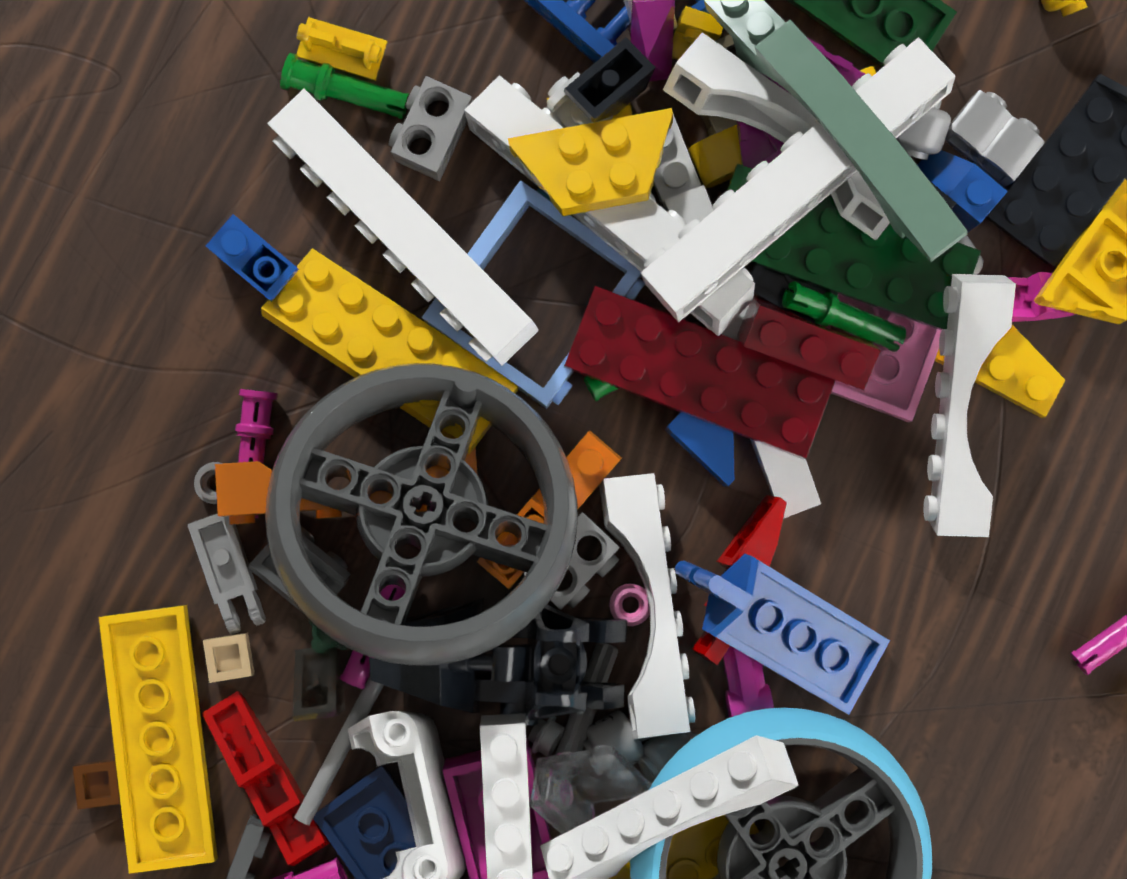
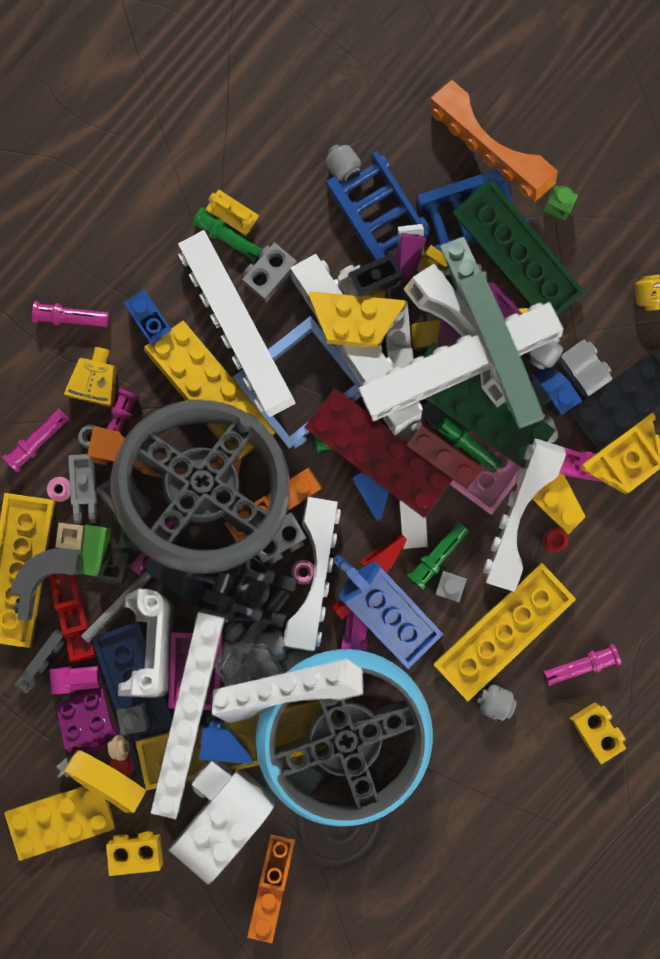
camera: 15 degrees right, 0 degrees up
(104, 296) = (58, 314): none -> dark pink pin
(116, 531) = (28, 447): none -> dark pink pin
(182, 740) = (36, 570): none -> dark grey arch
(193, 388) = (94, 380): none -> yellow torso
(200, 589) = (66, 489): none -> bright pink plate
(273, 668) = (93, 549): none -> bright green panel
(835, 531) = (430, 564): none -> green pin
(878, 558) = (450, 586): none -> light grey plate
(988, 607) = (504, 631): none -> yellow plate
(1011, 728) = (497, 703): none -> light grey head
(1026, 432) = (555, 540): none -> red plate

